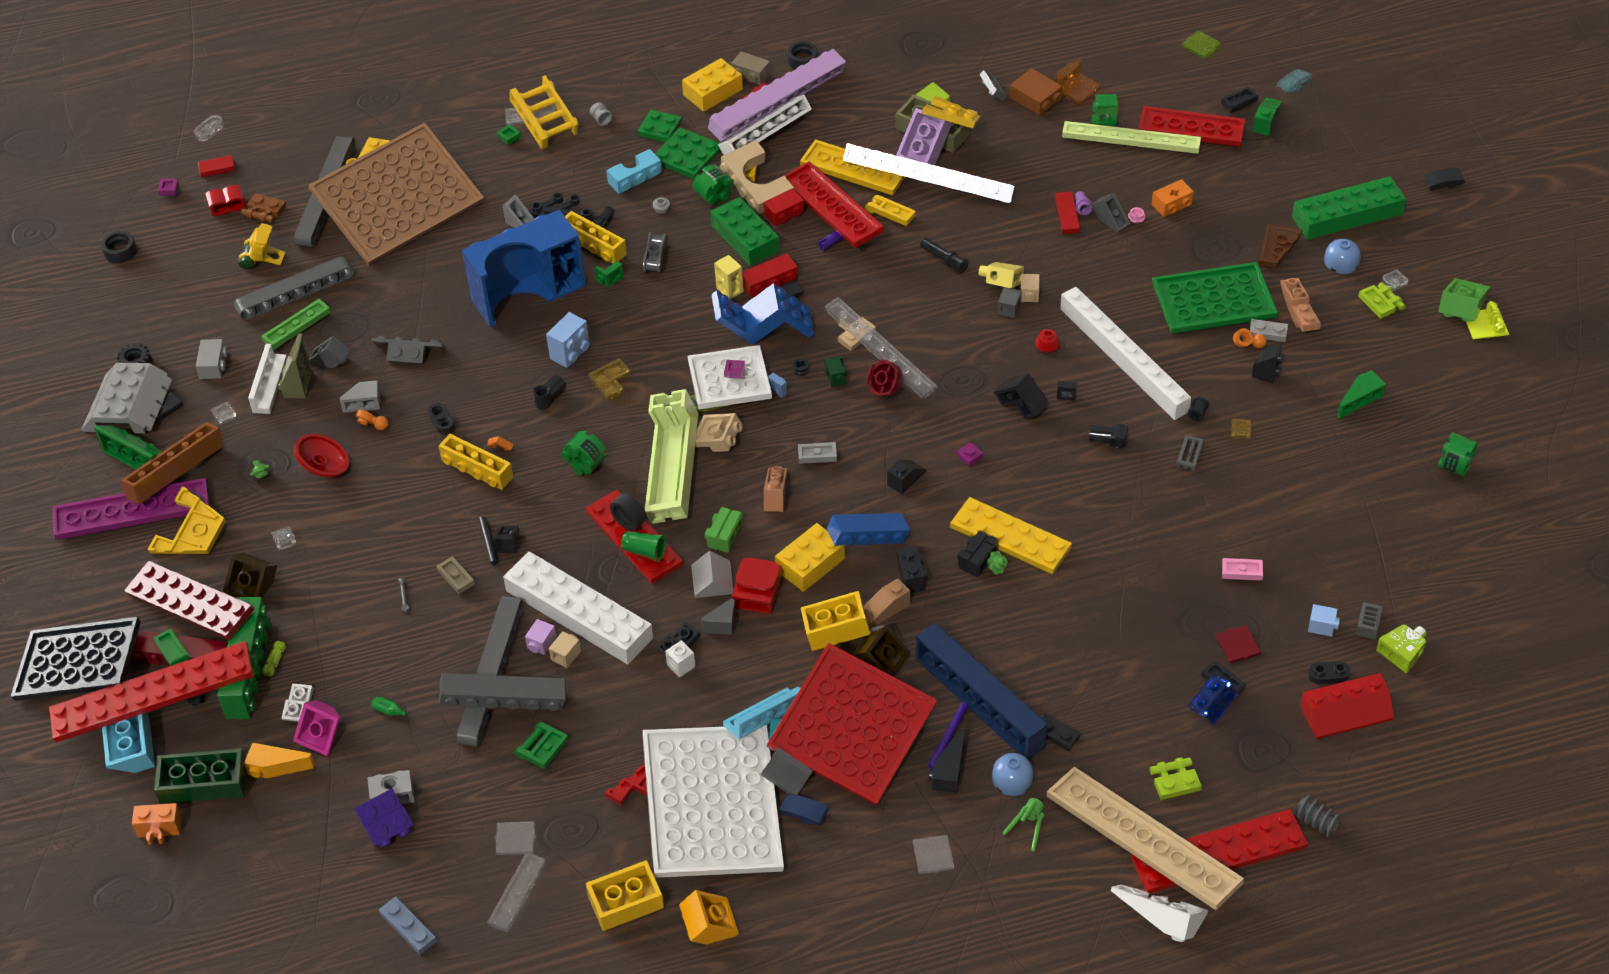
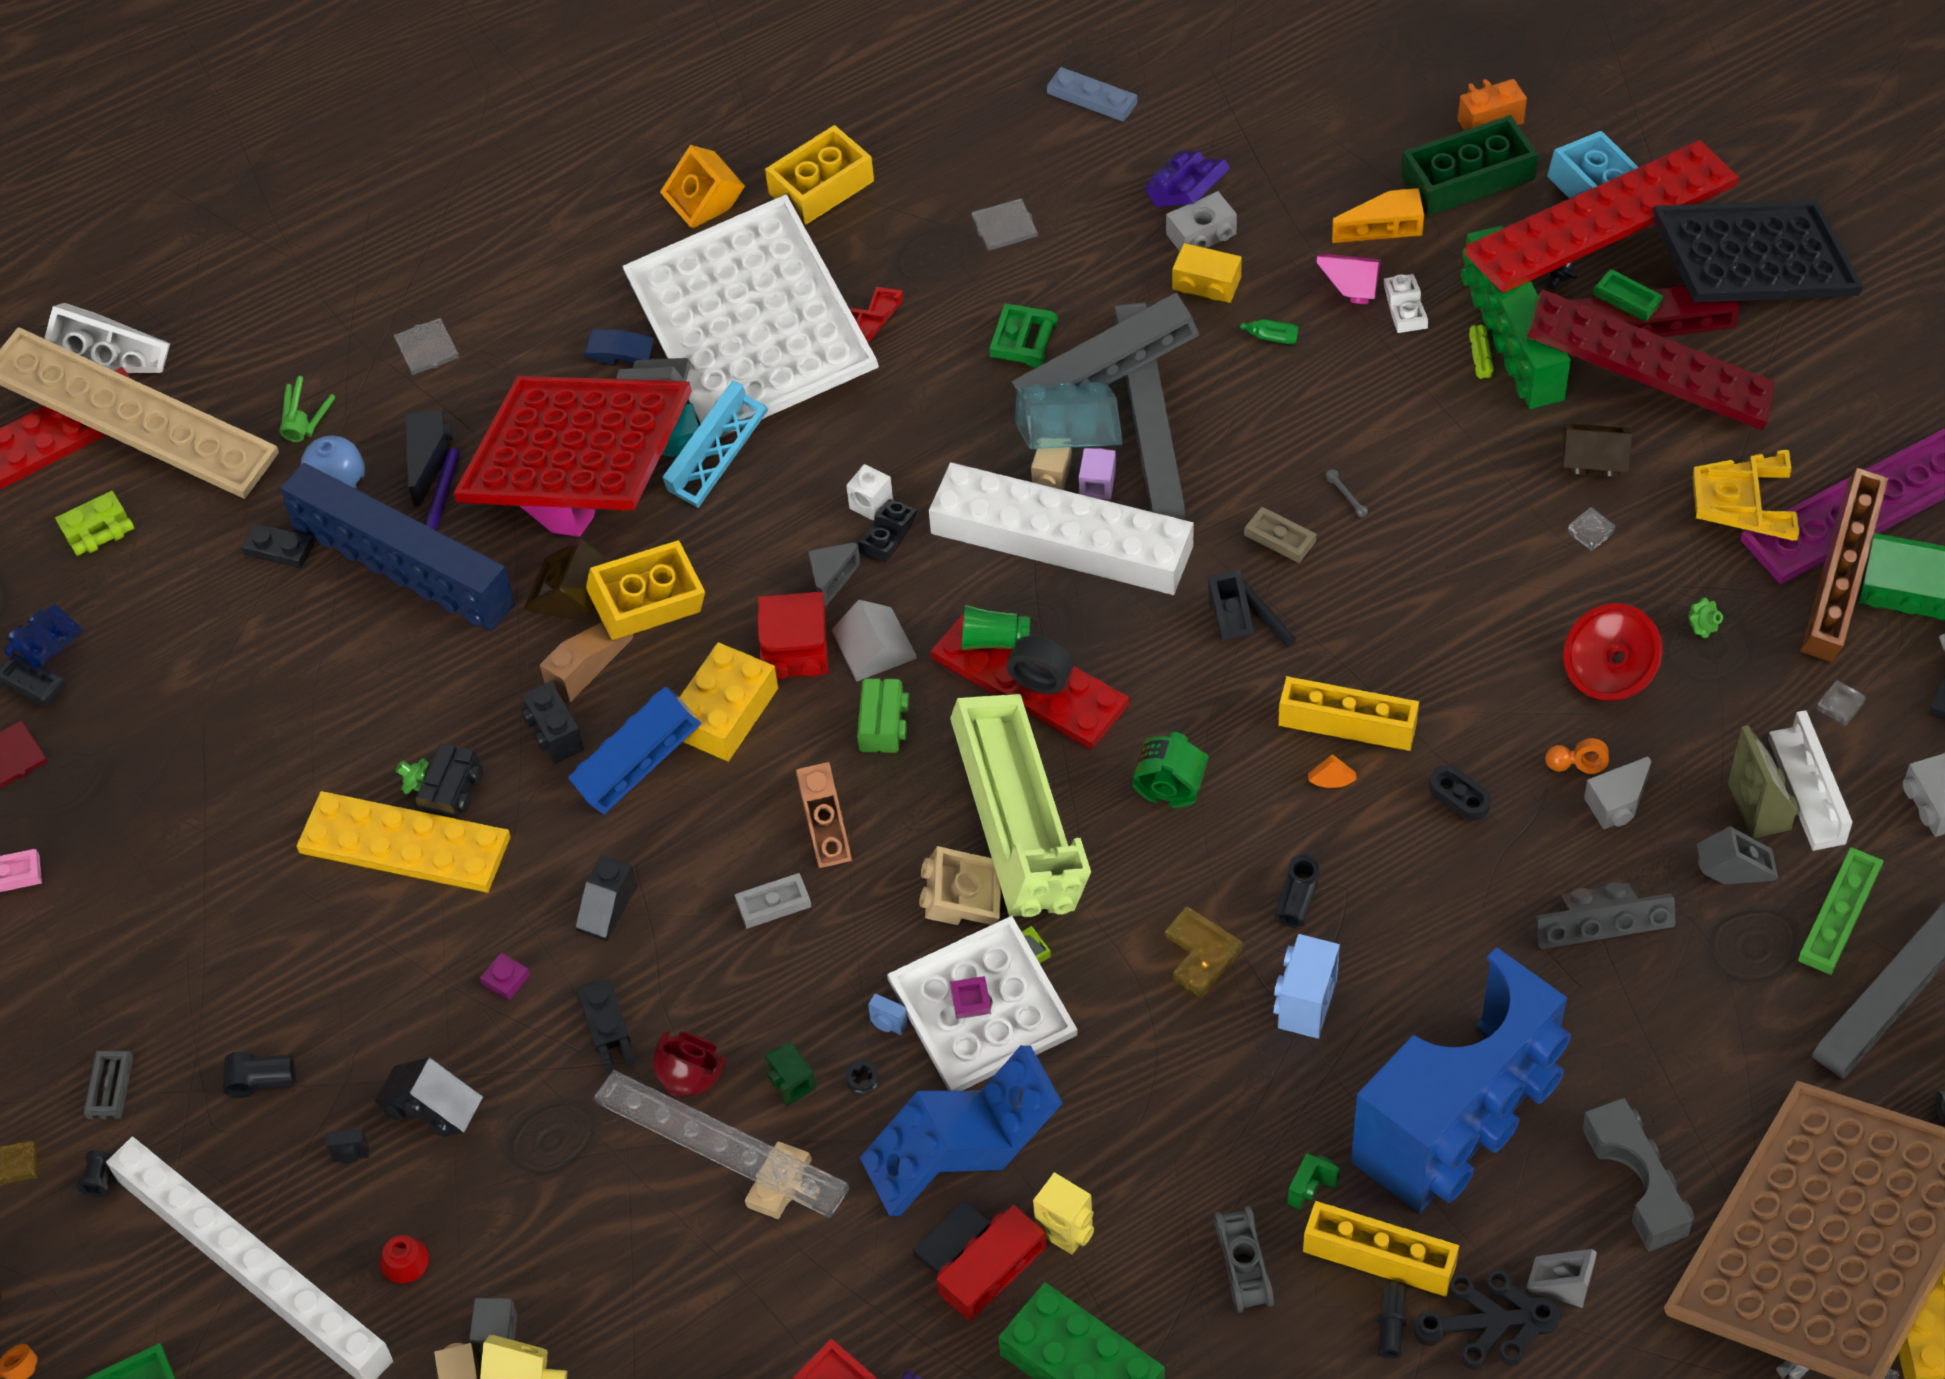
camera: 165 degrees right, 5 degrees up
(407, 752) = (1206, 273): none -> yellow brick
(463, 230) = (1618, 1135): none -> dark grey arch
(516, 892) = (970, 164): clear tile -> none
(544, 659) = (1068, 416): none -> clear light blue slope
(922, 420) = (605, 1021): none -> black hinge

